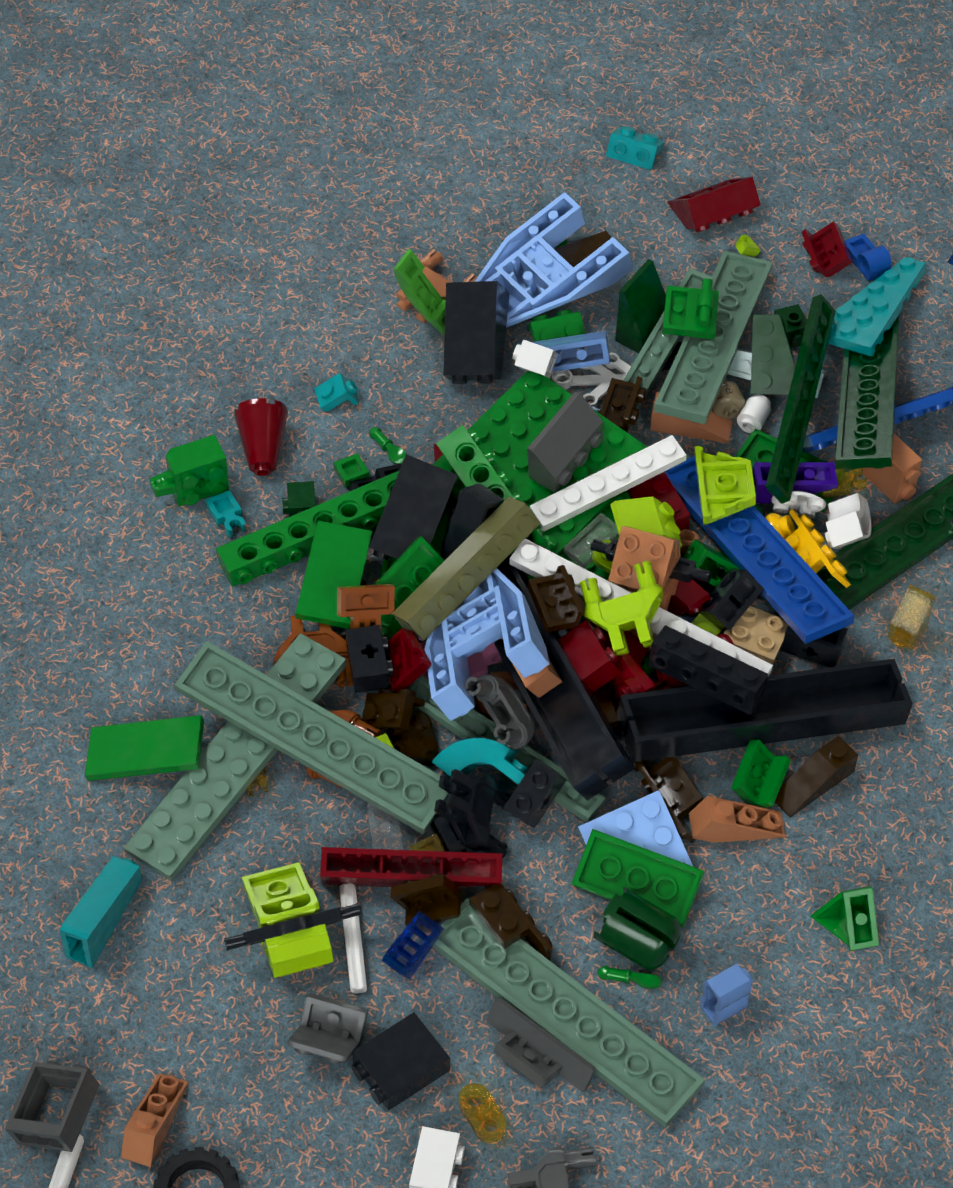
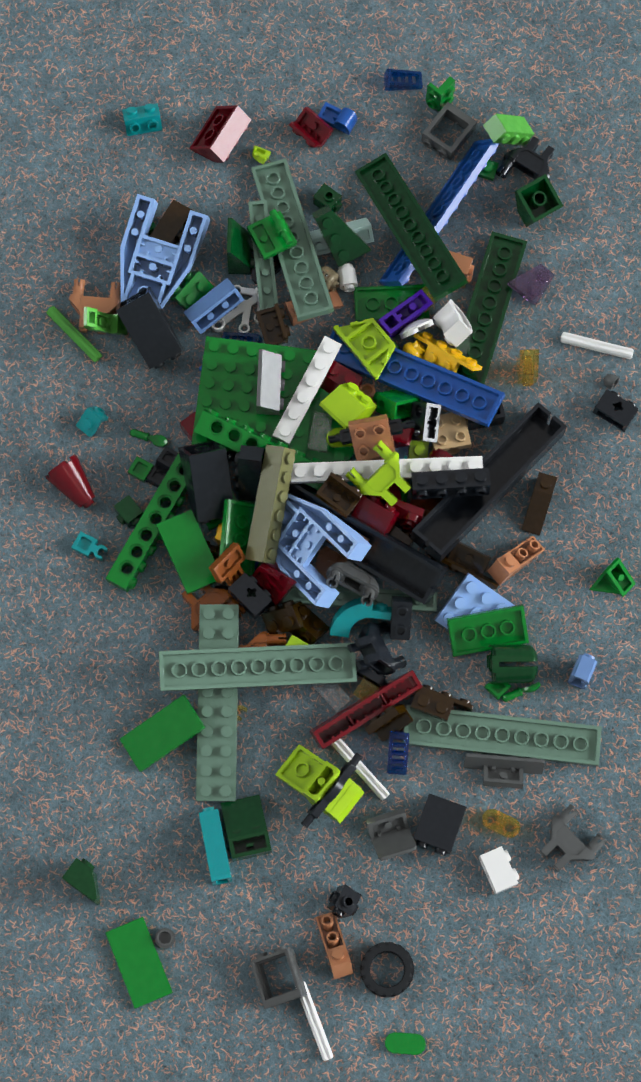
camera: 35 degrees left, 20 degrees up
(155, 916) = (246, 828): none -> dark green slope
(193, 472) = (53, 535): green hinge -> none
(206, 1071) = (344, 901): none -> black brick
(388, 303) = (74, 334): none -> bright green axle
(534, 358) = (205, 329): white brick -> none
(601, 955) = (498, 689): none -> green tile
(760, 775) = (511, 522): green bracket -> none
(800, 399) = (376, 257): dark green plate -> none
(872, 311) = (368, 164): teal wing -> none

